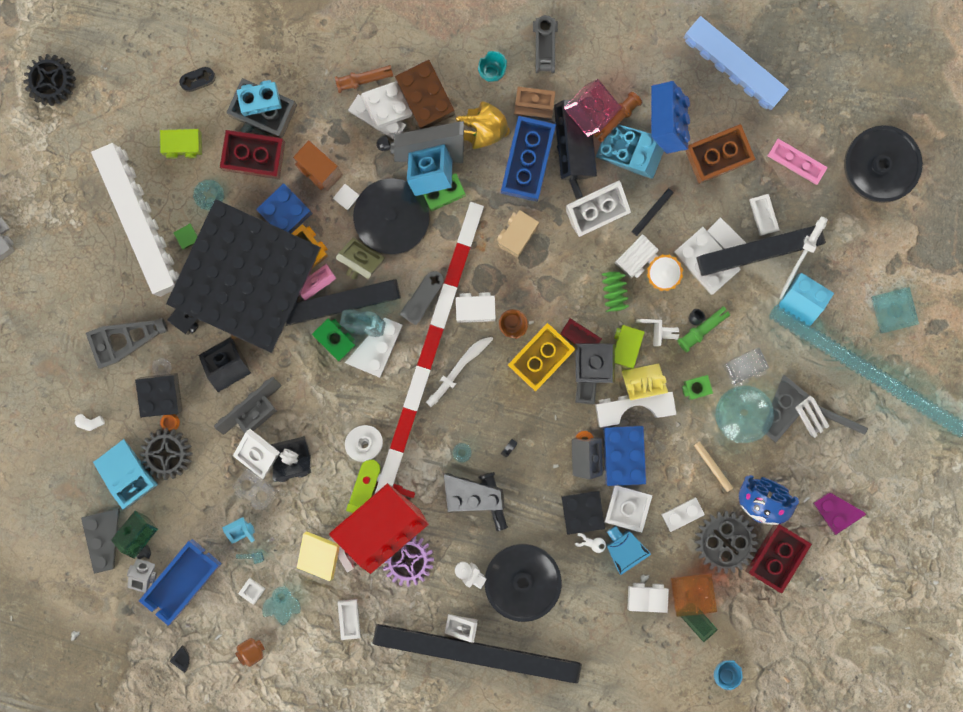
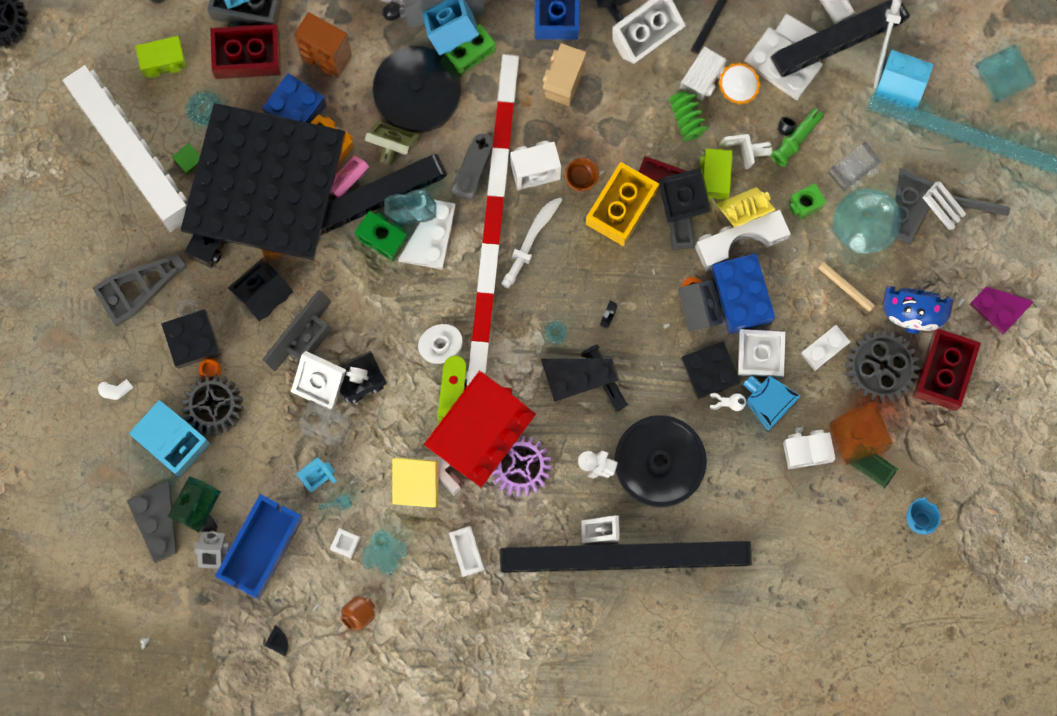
camera: 20 degrees left, 10 degrees down
(346, 197) = (361, 78): white tile -> none

